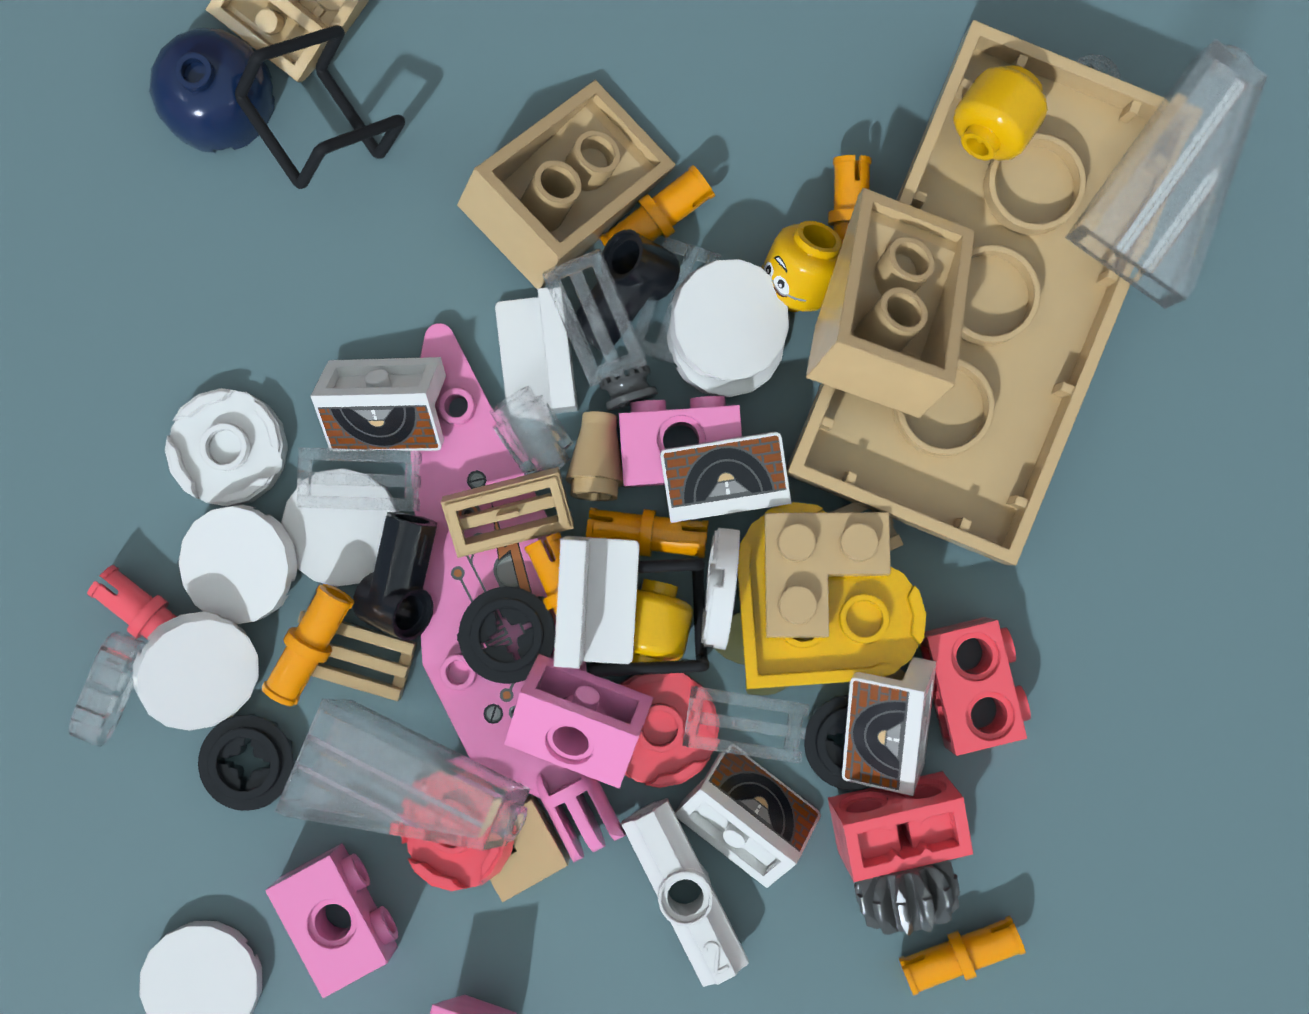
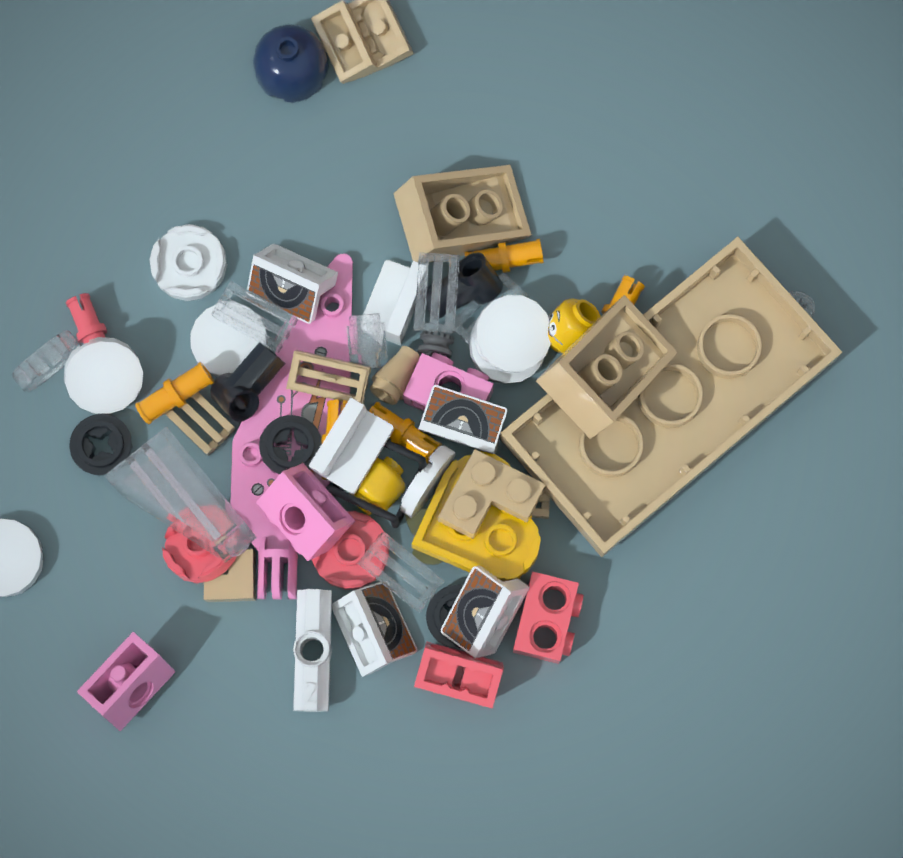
camera: 30 degrees right, 10 degrees down
(237, 563) = (159, 329): white tile -> none
(329, 952) = (91, 538): bright pink brick -> none
(334, 36) = (361, 126): black piece -> none
(909, 898) = (443, 715): dark grey gear -> none
(962, 955) = (456, 777): light orange pin -> none
(1000, 113) = (724, 294): yellow head -> none
(1171, 184) = (798, 378): clear slope -> none

